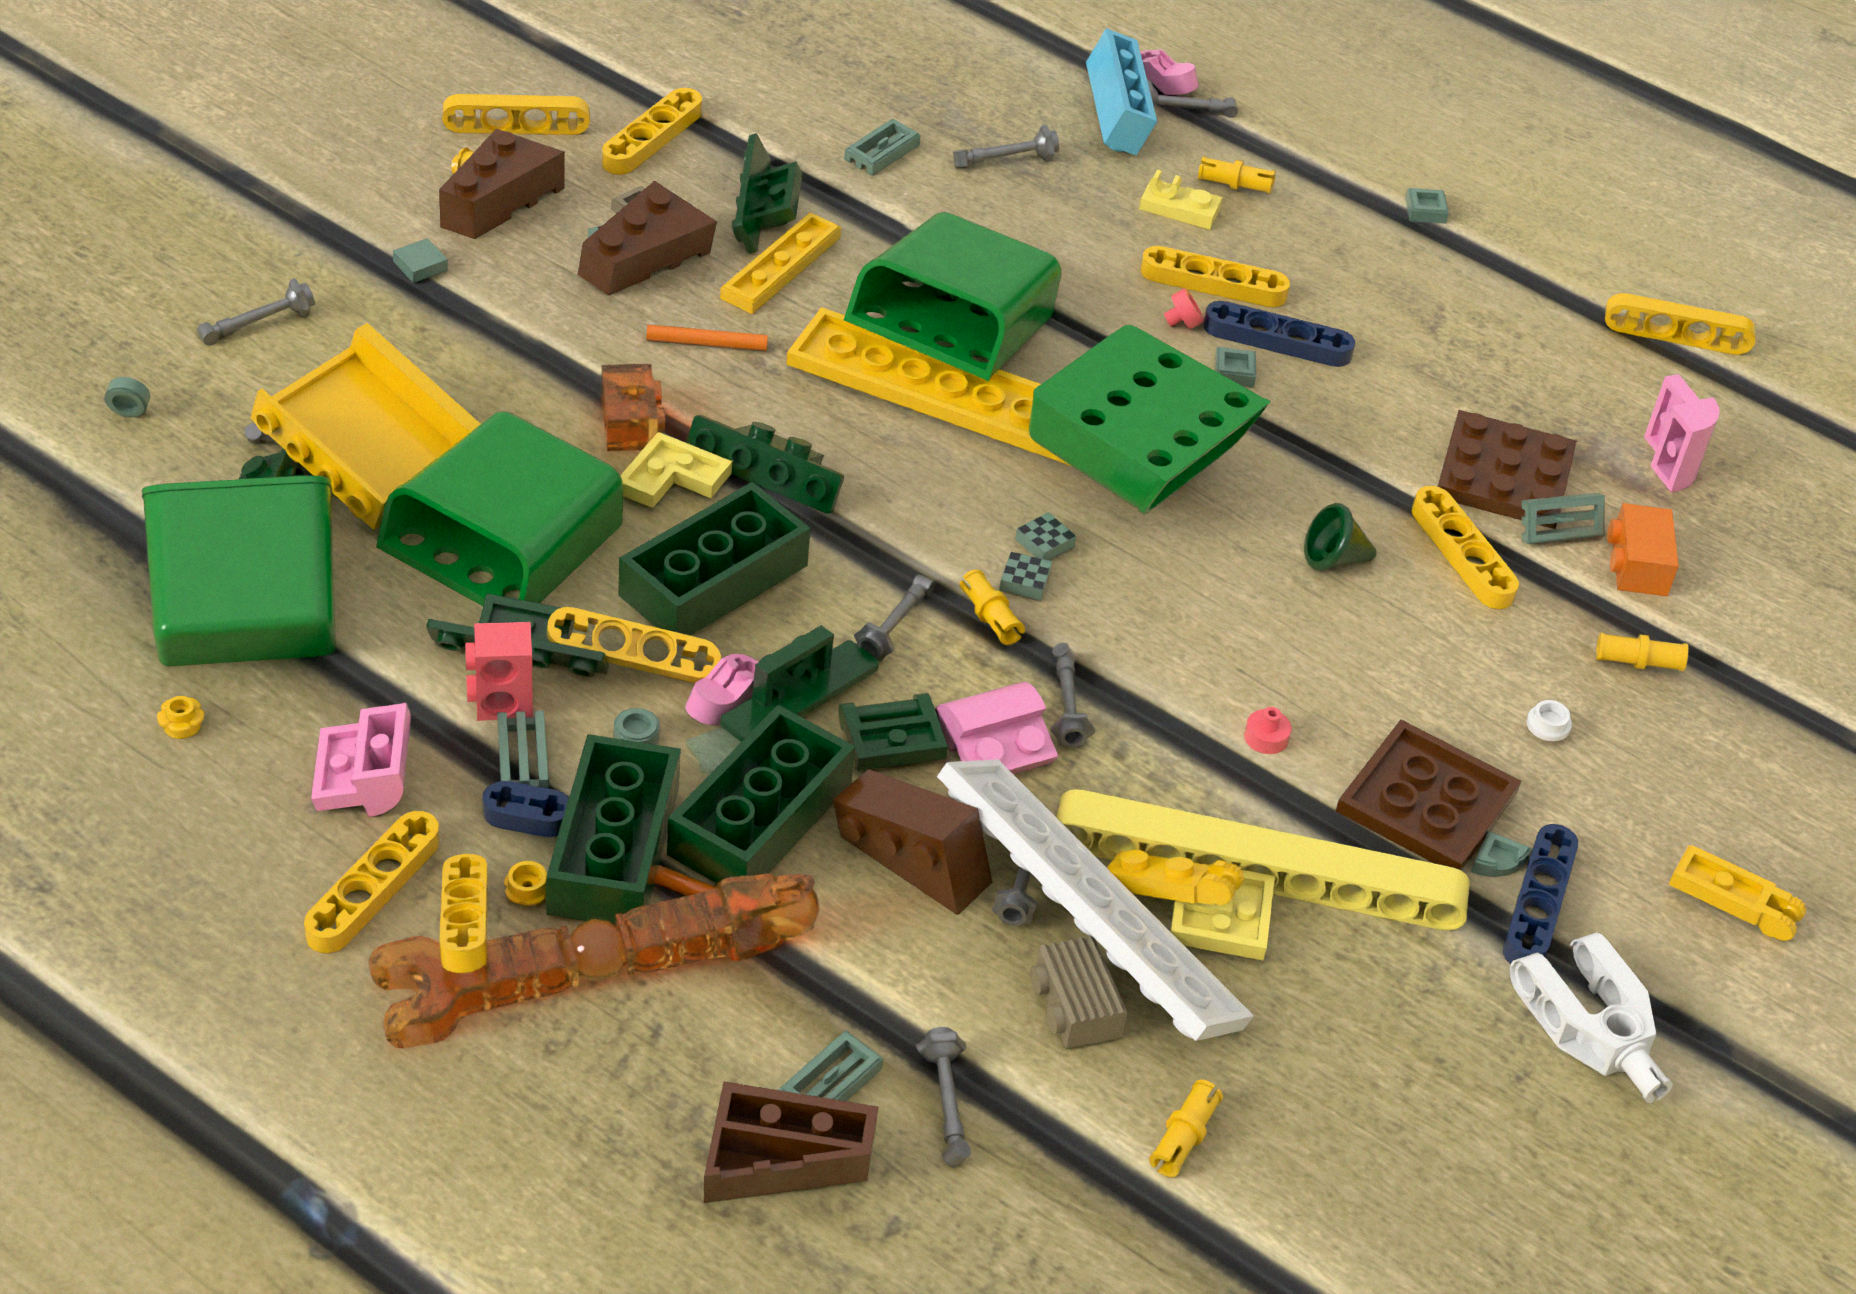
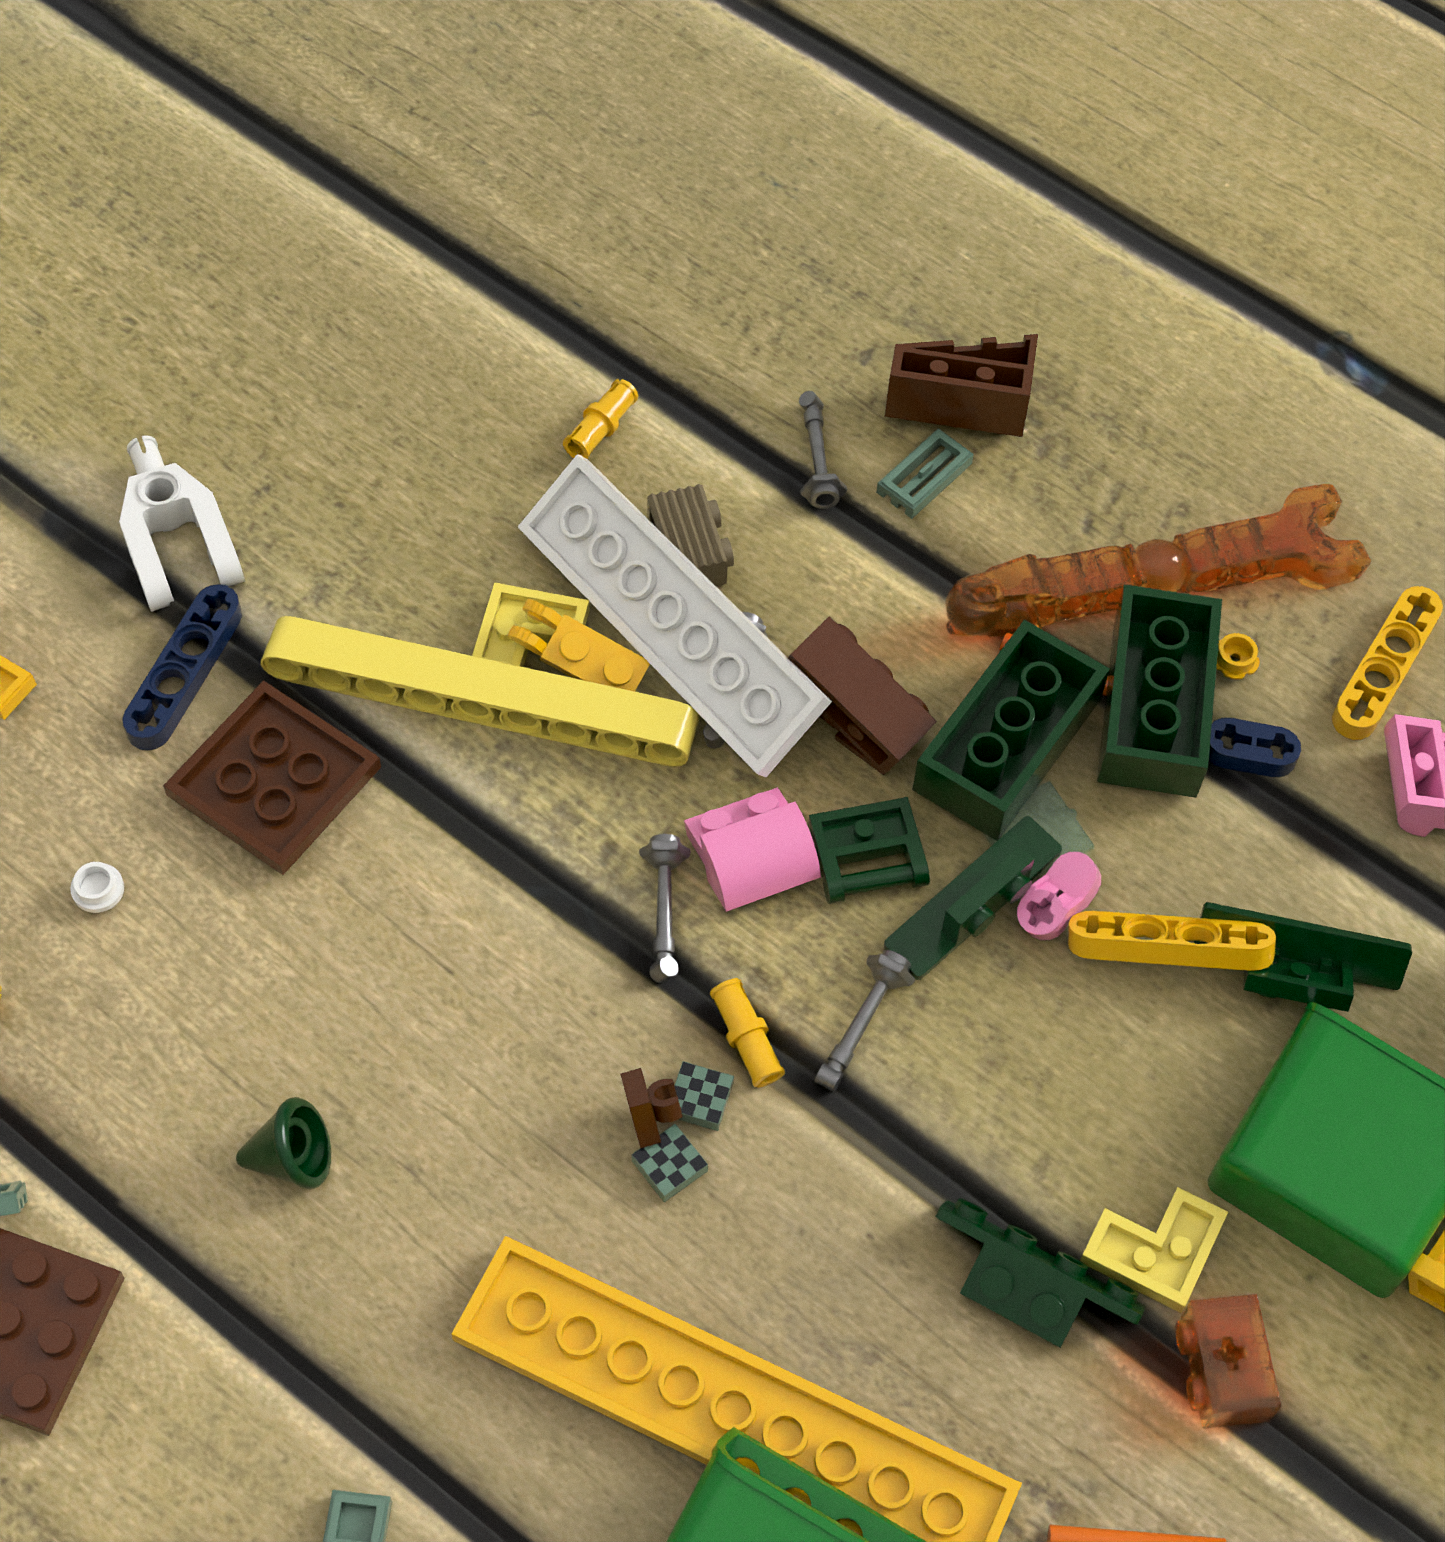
camera: 175 degrees left, 15 degrees up
(464, 913) = (1300, 590): yellow beam -> none
(502, 669) = (1314, 873): coral brick -> none
(522, 725) = (1288, 818): sand green tile -> none
(637, 726) = (1150, 854): sand green tile -> none
(714, 561) = (1089, 1063): dark green brick -> none
(1072, 550) = (650, 1105): none -> reddish brown tile
(1140, 416) = (538, 1295): green piece -> none
(1267, 731) = (436, 871): coral tile -> none
(1490, 582) = (111, 1169): yellow beam -> none
(1500, 856) = (207, 715): sand green tile -> none

